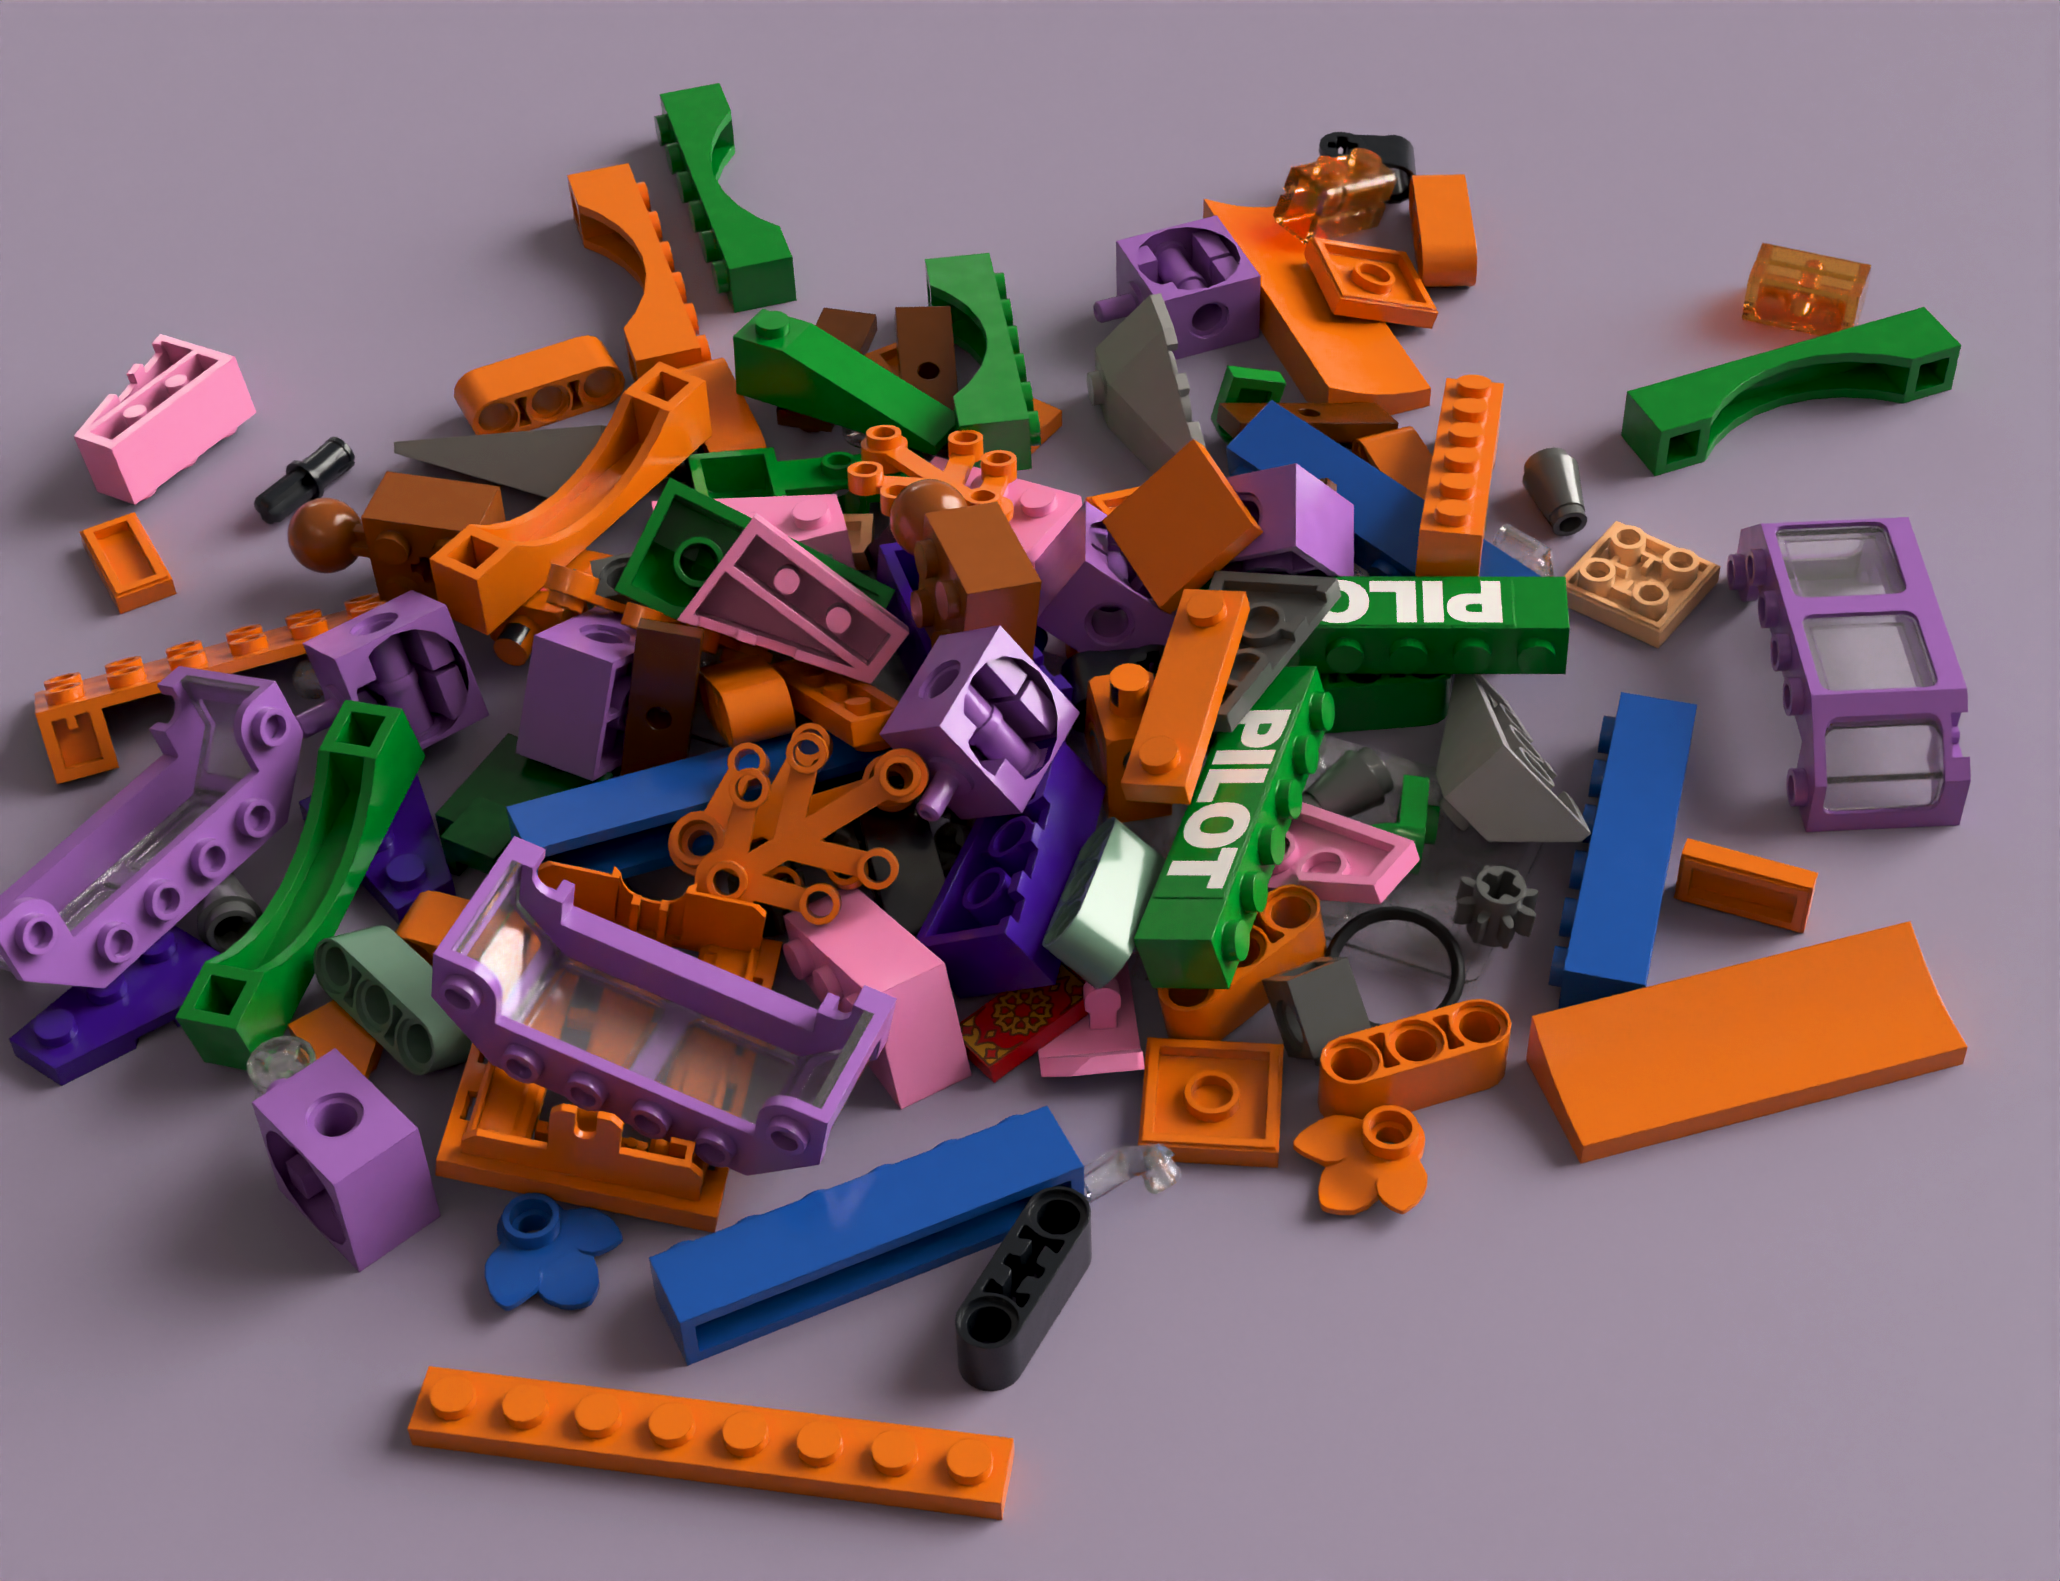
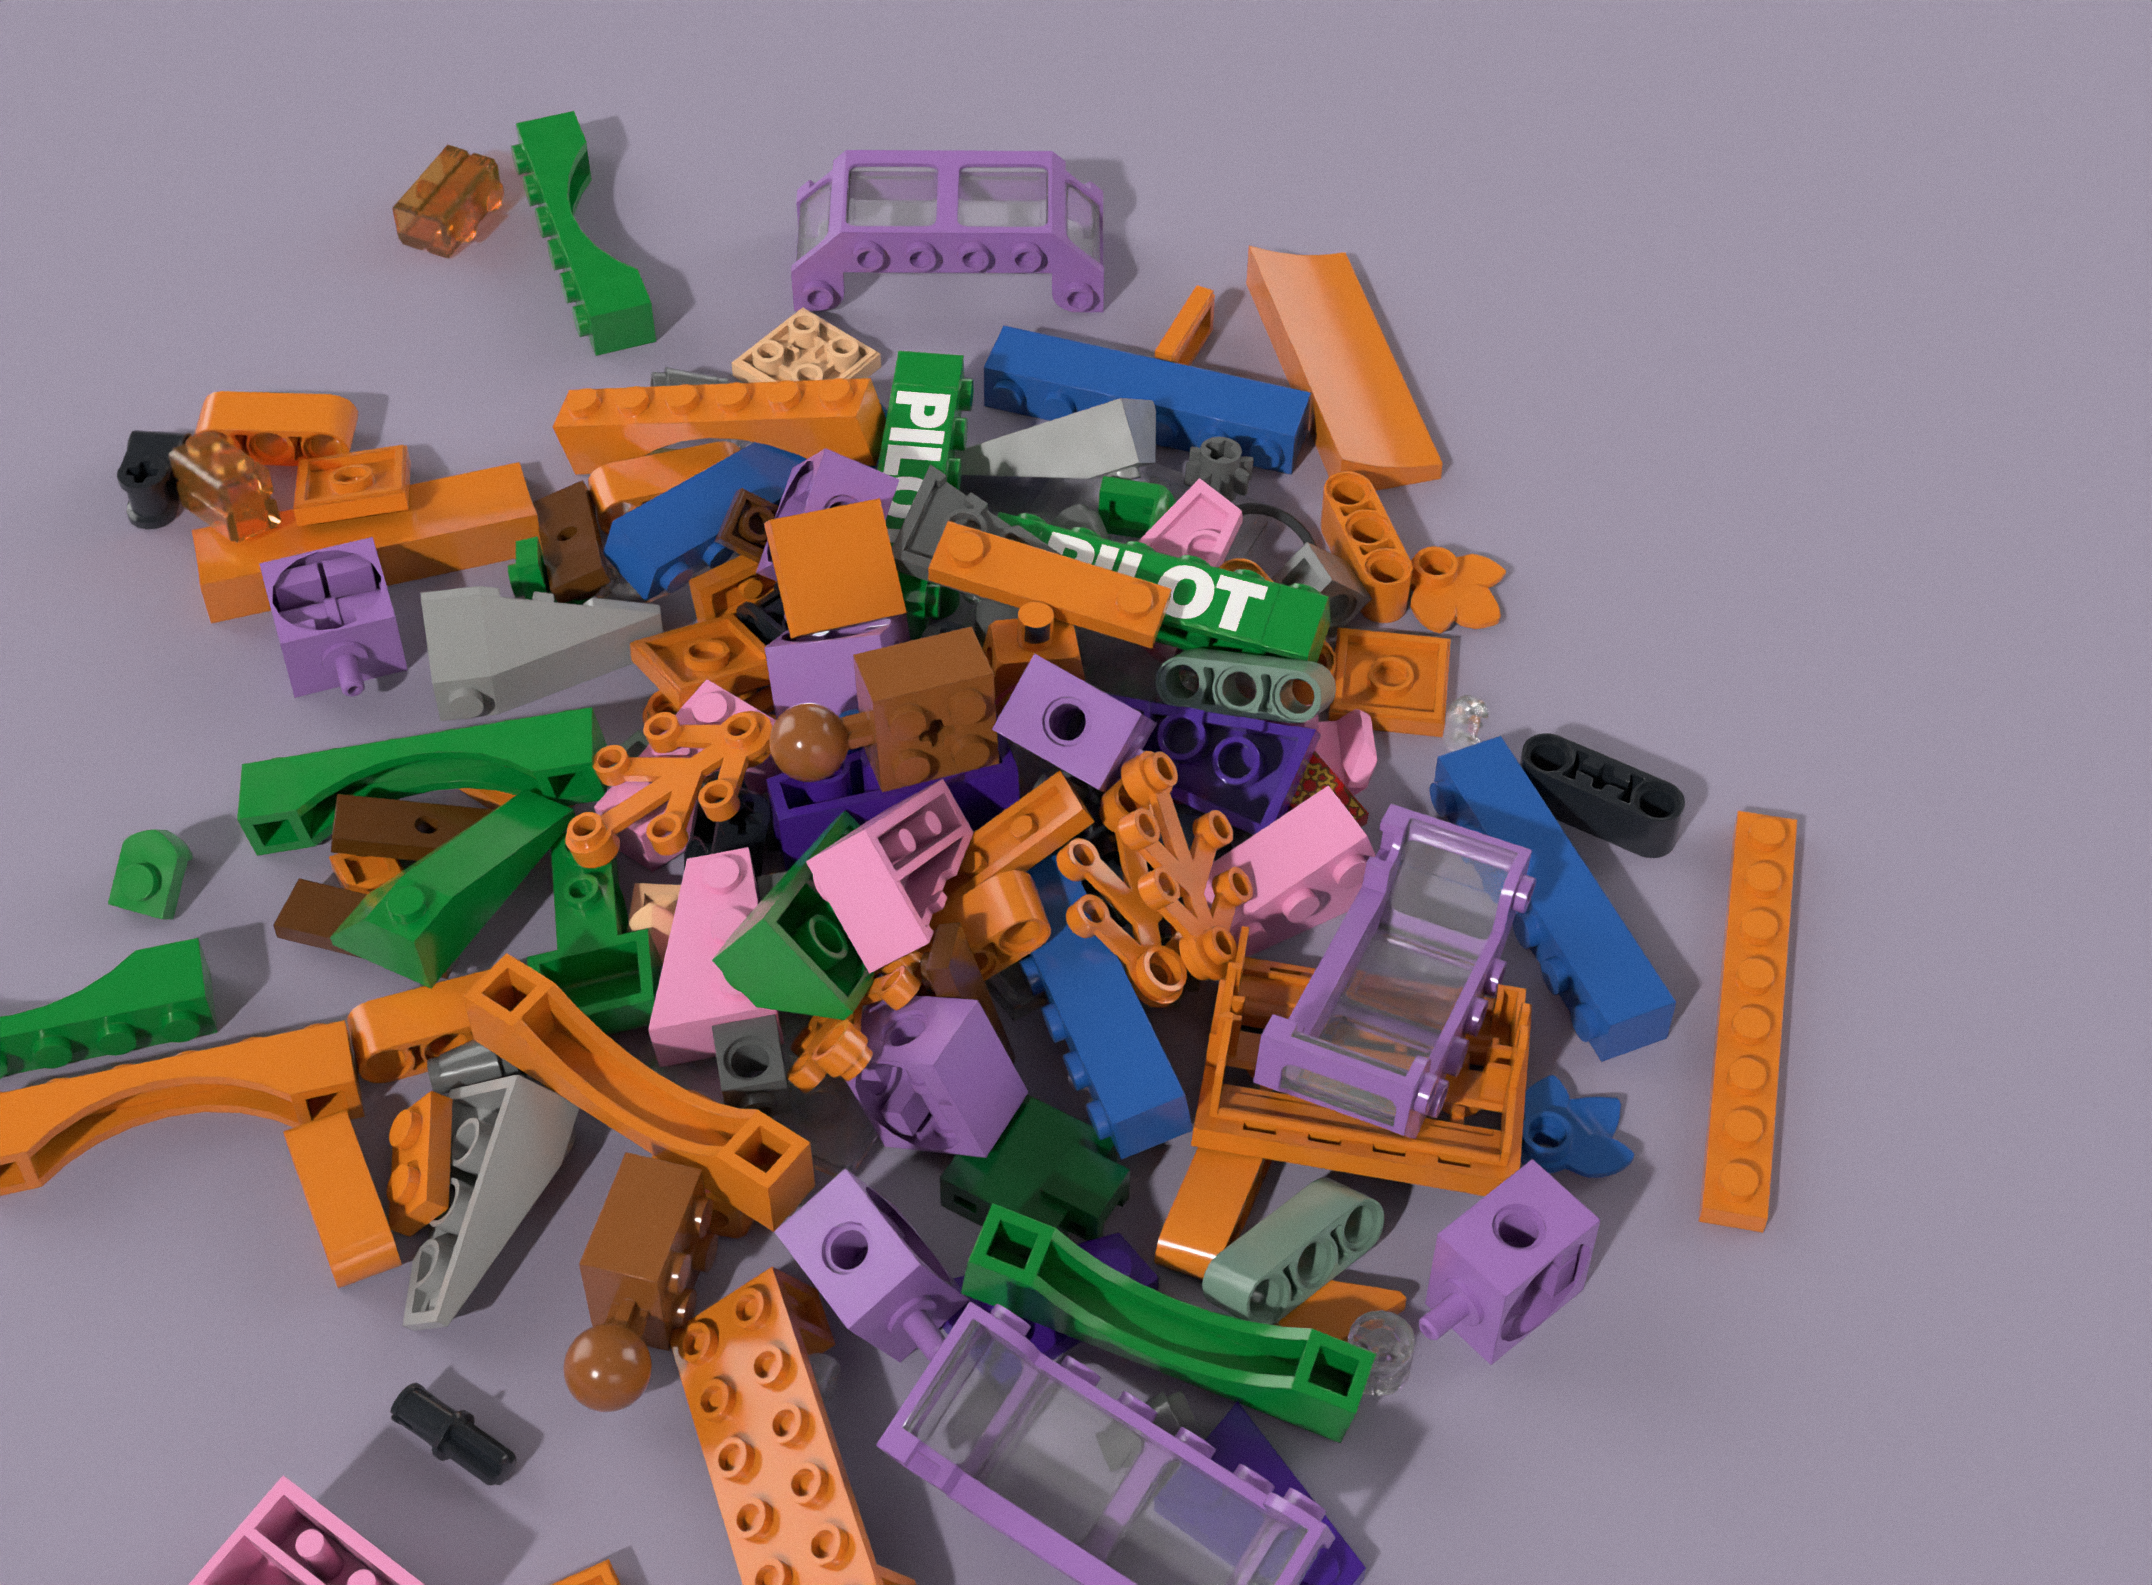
camera: 90 degrees left, 5 degrees up
(544, 416) = (420, 1163): none -> orange plate
(884, 233) = (150, 873): none -> green plate

